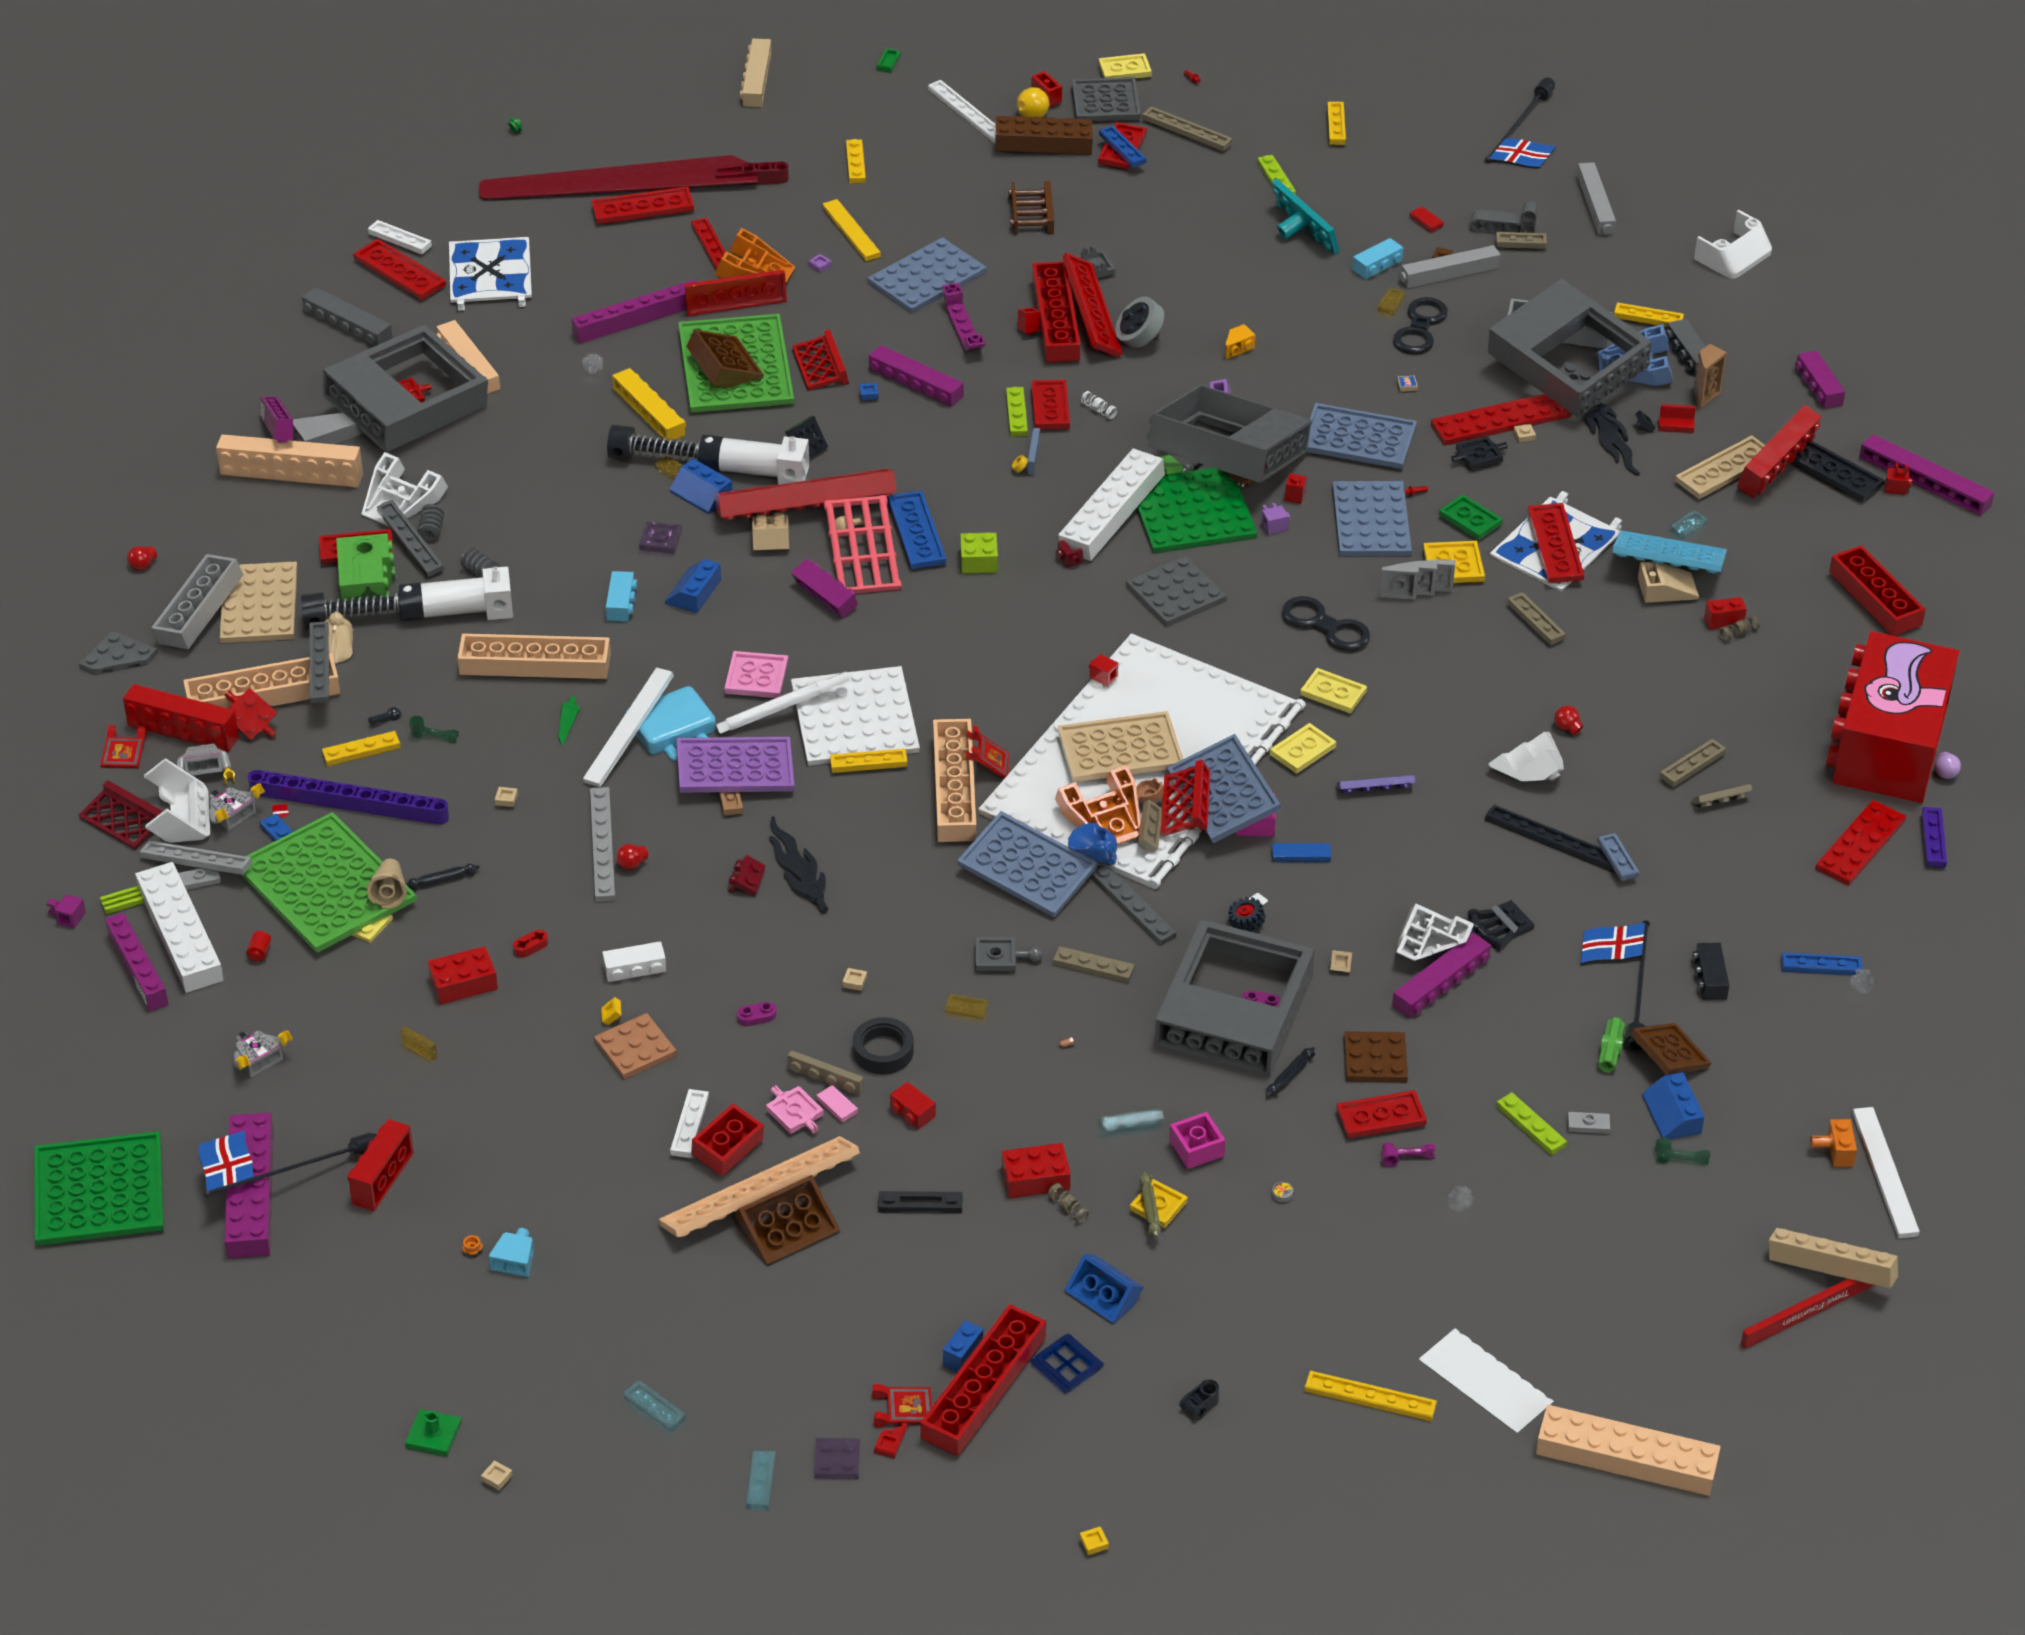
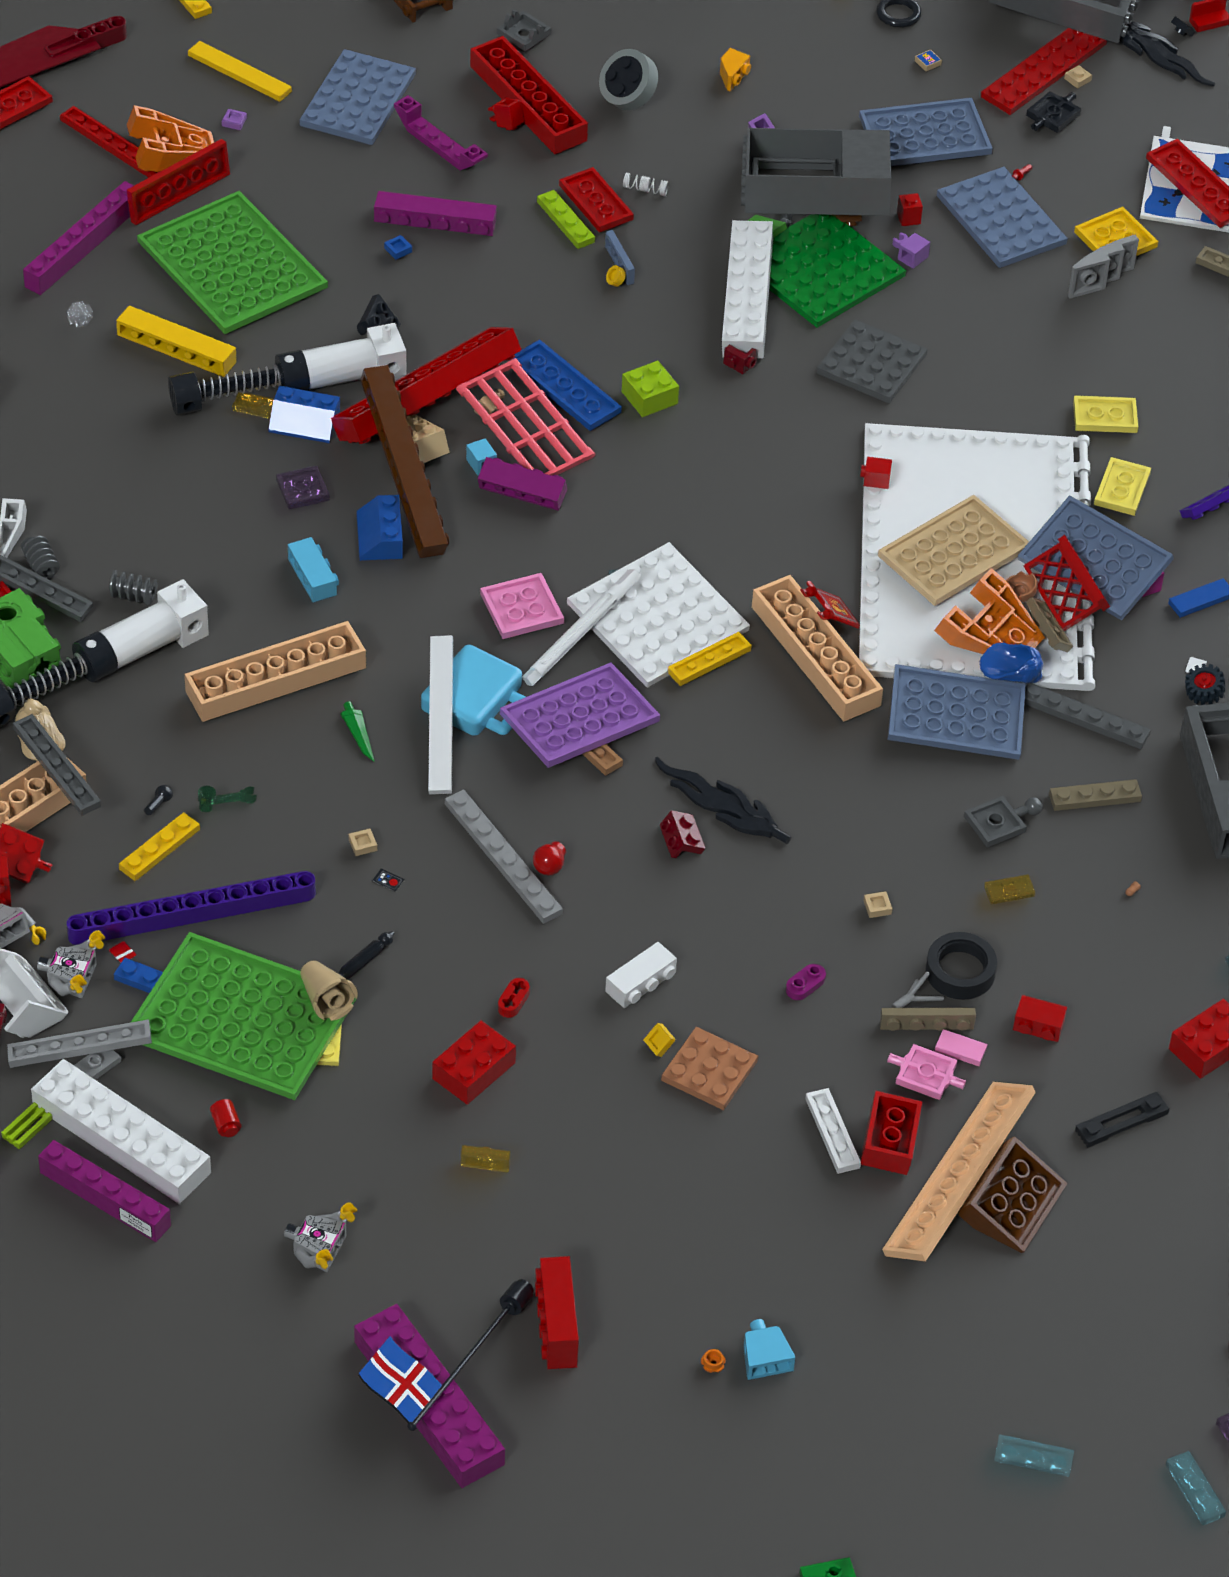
camera: 30 degrees left, 5 degrees up
(98, 1188) = (262, 1470): green plate -> none
(507, 830) = (388, 880): none -> sticker
(723, 358) = (223, 262): reddish brown slope -> none
(737, 540) = (404, 461): none -> reddish brown brick
(811, 553) = (477, 452): none -> medium azure brick
(826, 1053) = (909, 997): none -> light grey plant
(833, 358) = (336, 221): red fence -> none
(1092, 305) = (563, 76): red plate -> none
(1325, 623) = (1043, 345): black bar -> none
(1470, 517) = (1096, 183): green plate -> none

